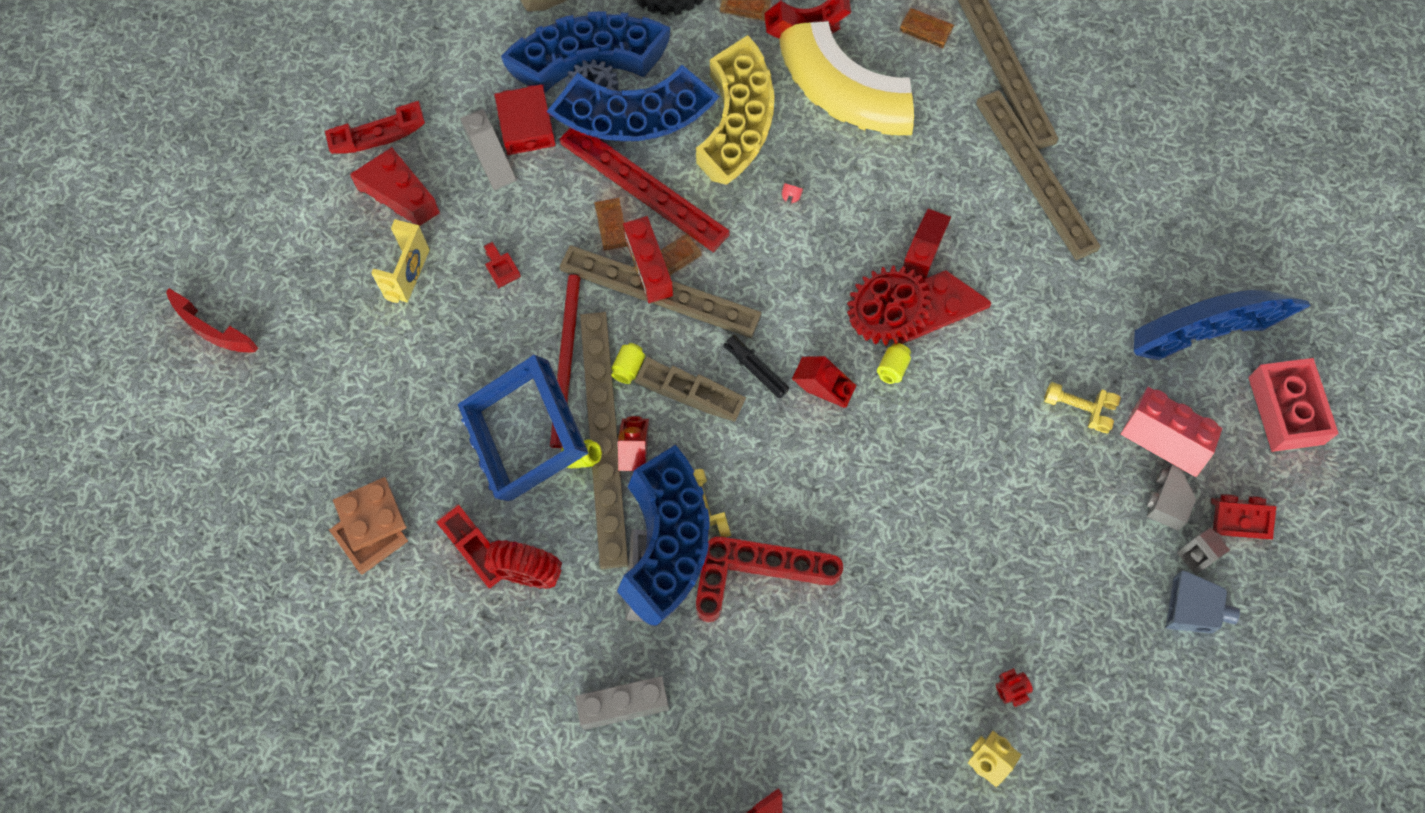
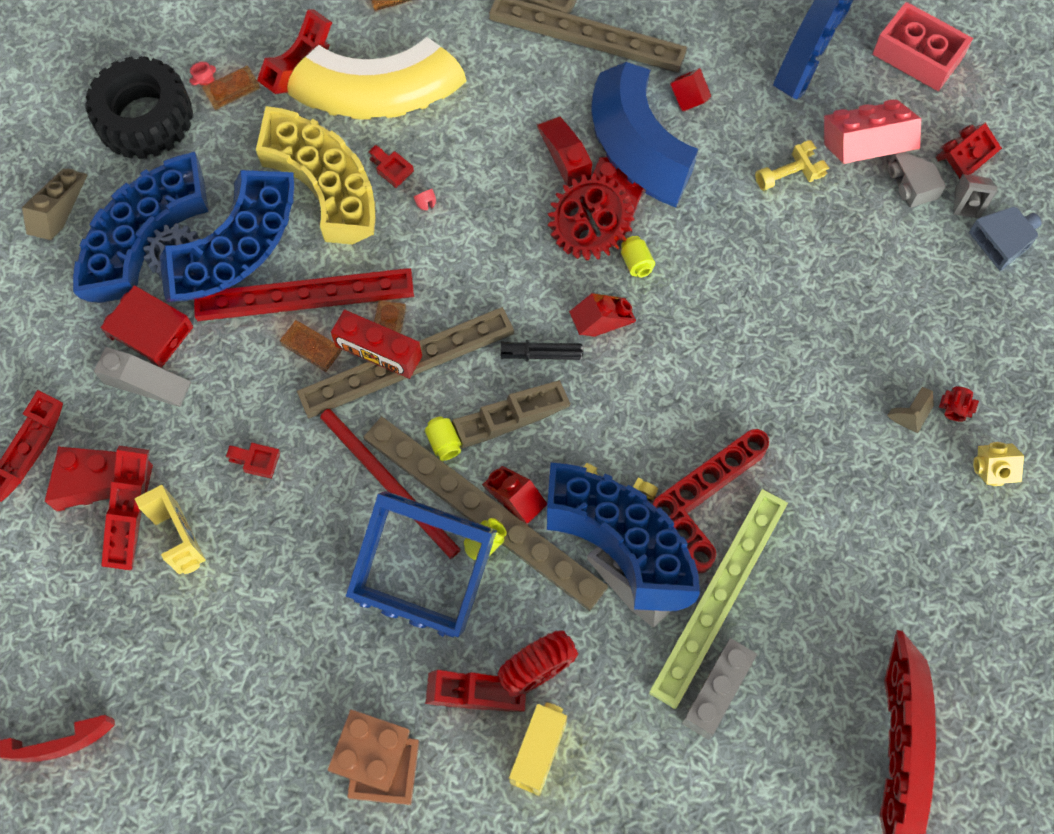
camera: 45 degrees left, 0 degrees up
(377, 231) = (123, 513): none -> red slope
(465, 618) = (538, 748): none -> light yellow brick
(692, 645) = (718, 599): none -> yellowish green plate
(792, 150) = (391, 167): none -> red plate
(977, 662) = (915, 416): none -> dark tan tile
(980, 279) = (634, 136): none -> blue brick
(1069, 280) = (690, 89): none -> red panel

